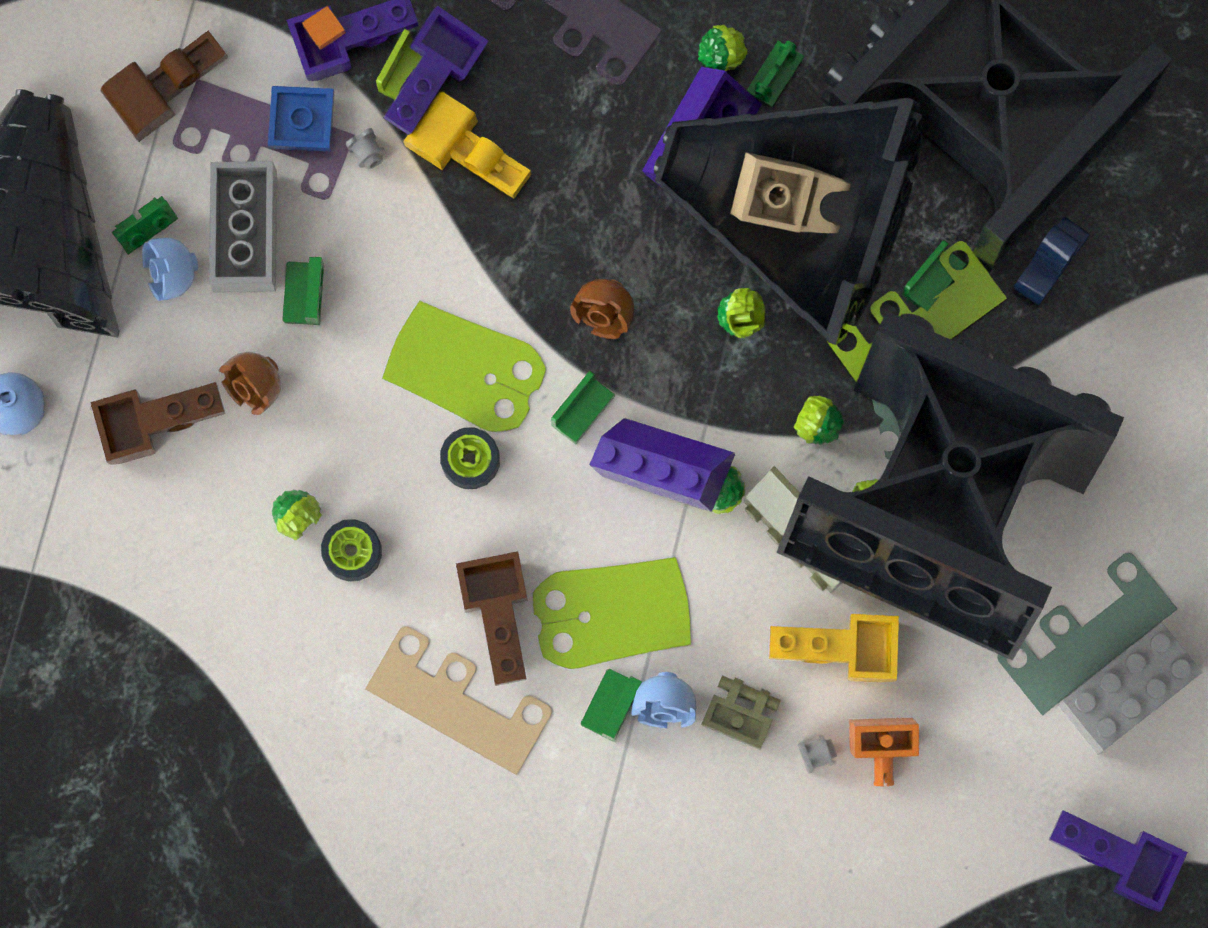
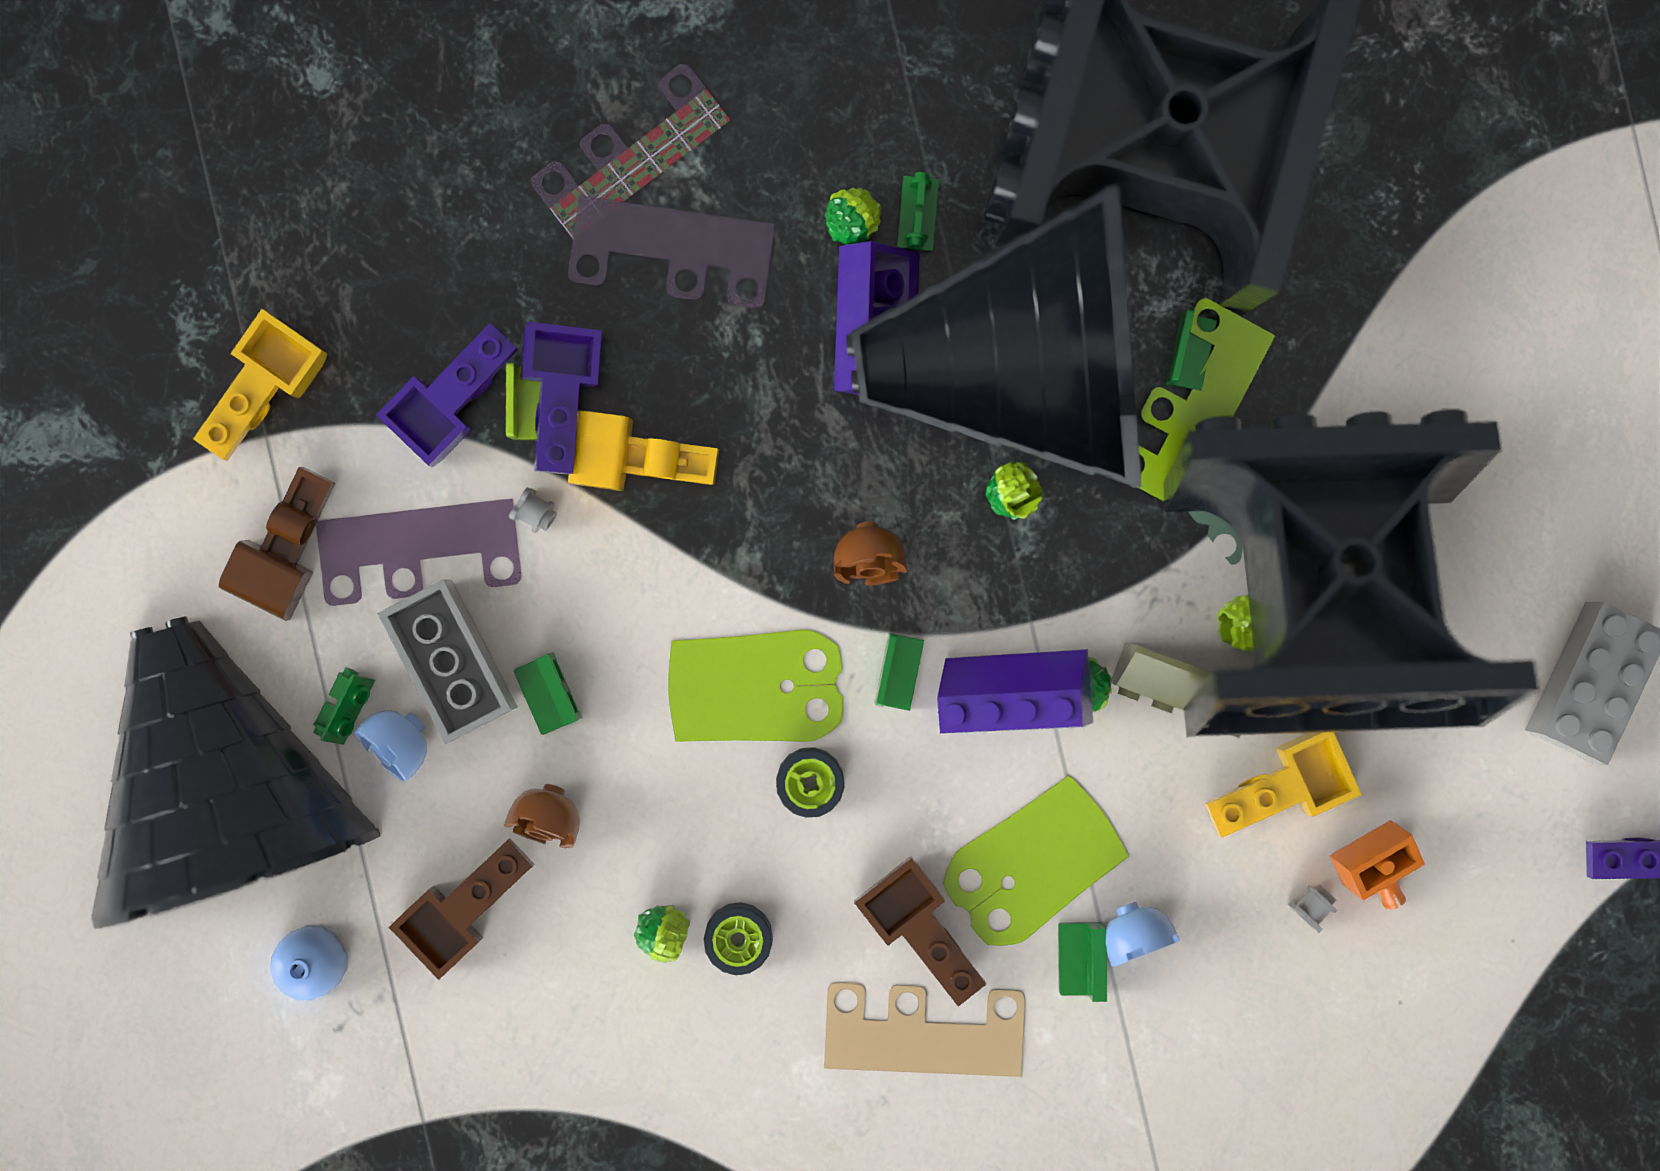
camera: 30 degrees left, 10 degrees up
(301, 118) = (447, 512): blue plate -> none
(323, 27) = (420, 405): orange tile -> none
(737, 721) = (1217, 914): olive plate -> none
(796, 197) = (1004, 348): tan brick -> none
(819, 421) = (1151, 565): piece -> none
(1051, 260) = (1309, 270): dark blue beam -> none
(1090, 648) = (1542, 631): sand green piece -> none

